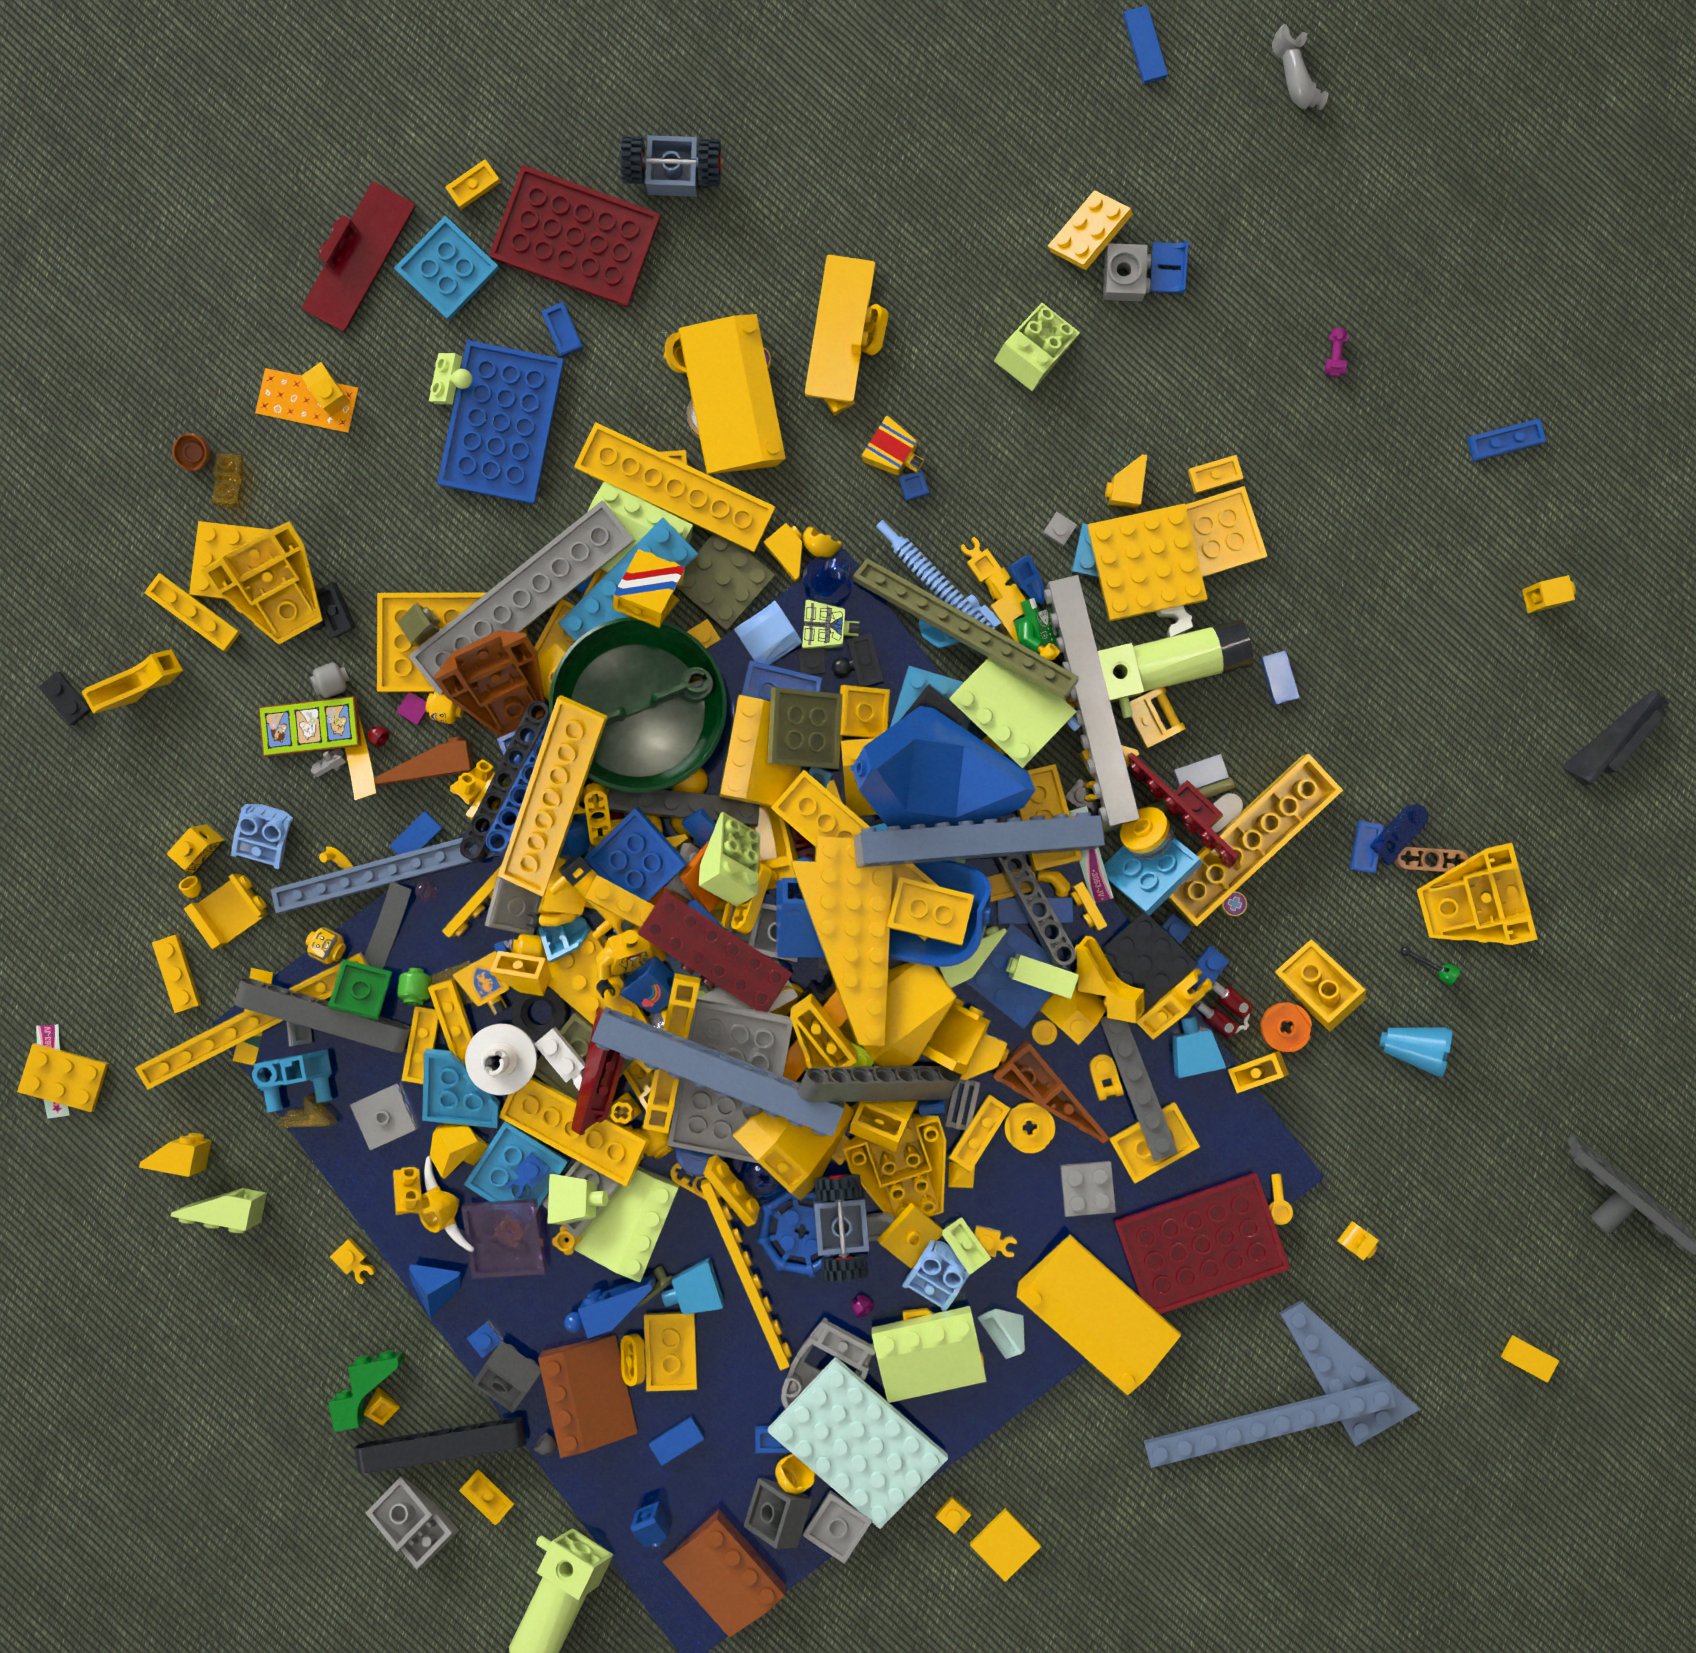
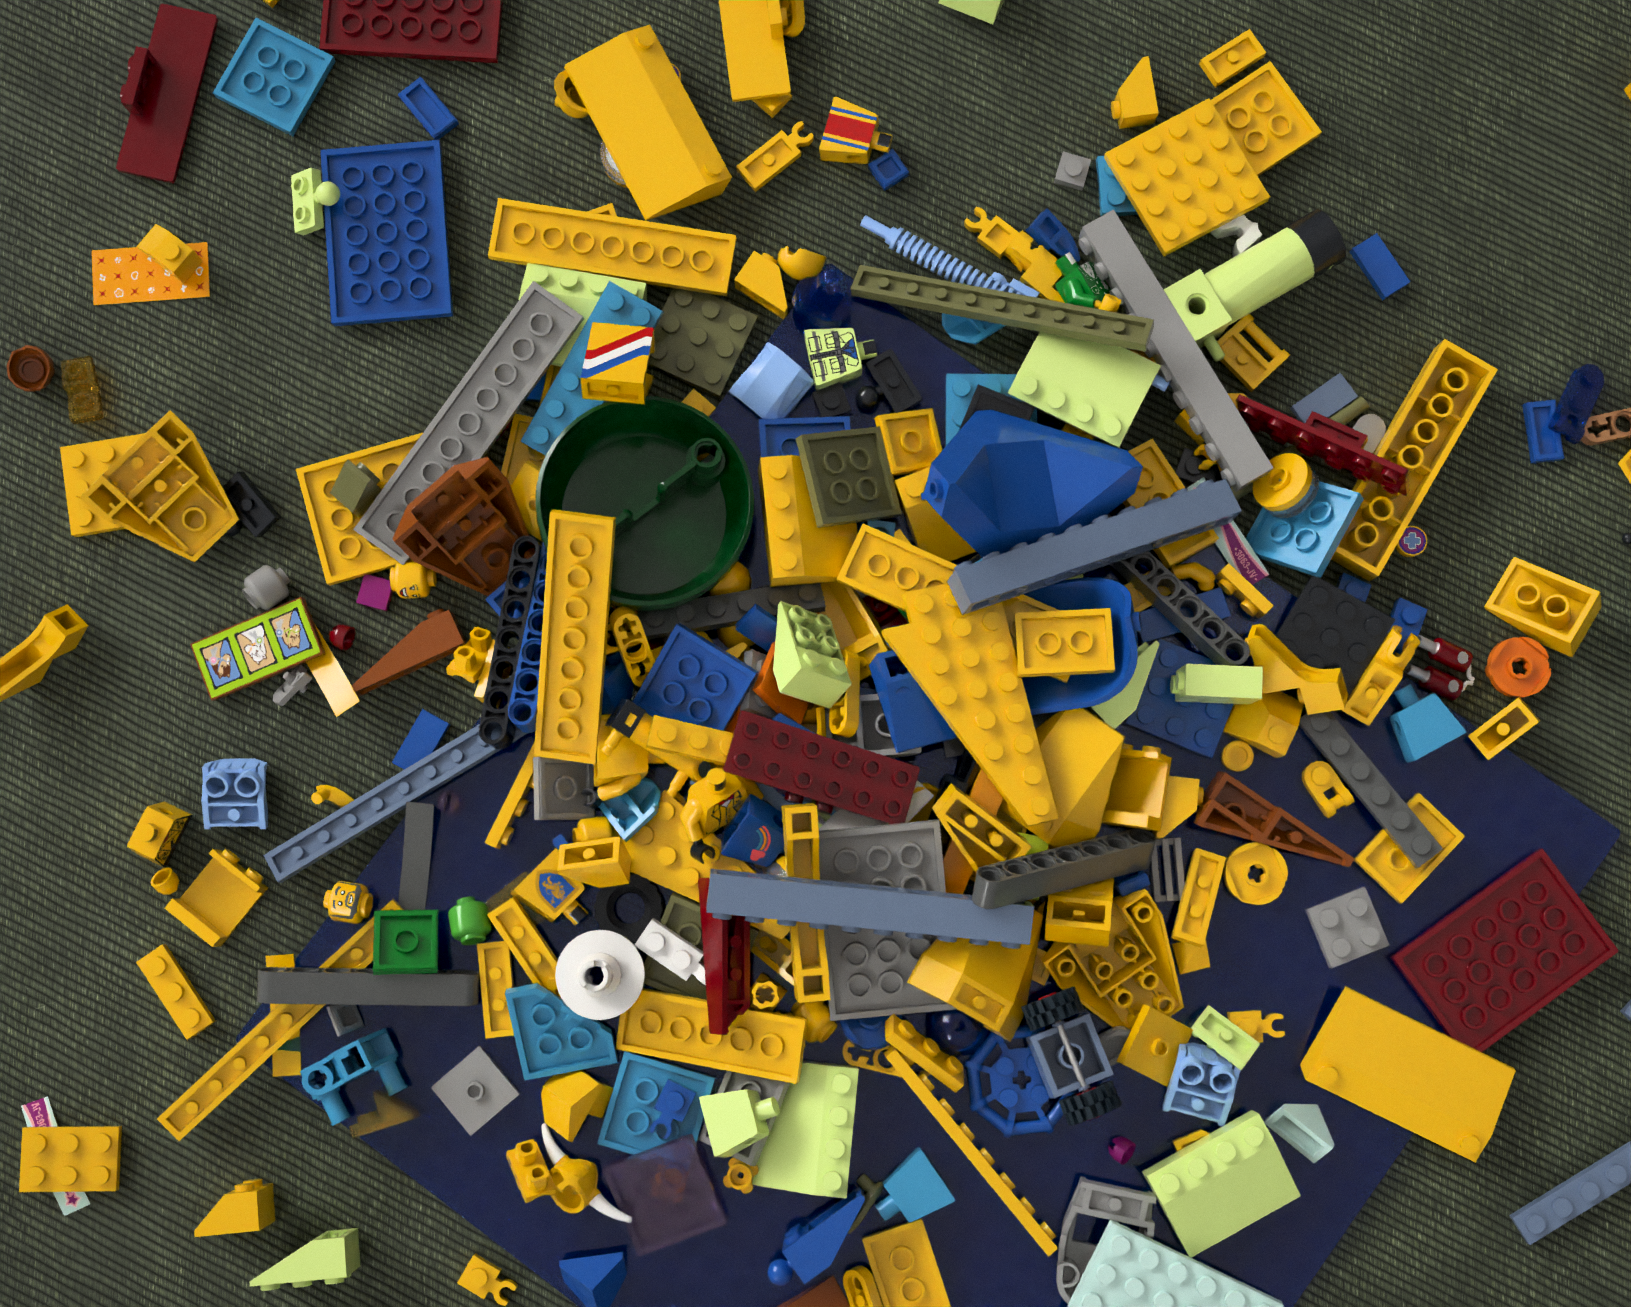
camera: 15 degrees left, 5 degrees down
(192, 612) = (81, 555): yellow plate -> none
(824, 449) = (773, 157): none -> yellow plate
(1280, 1209) = (1582, 882): yellow plate -> none

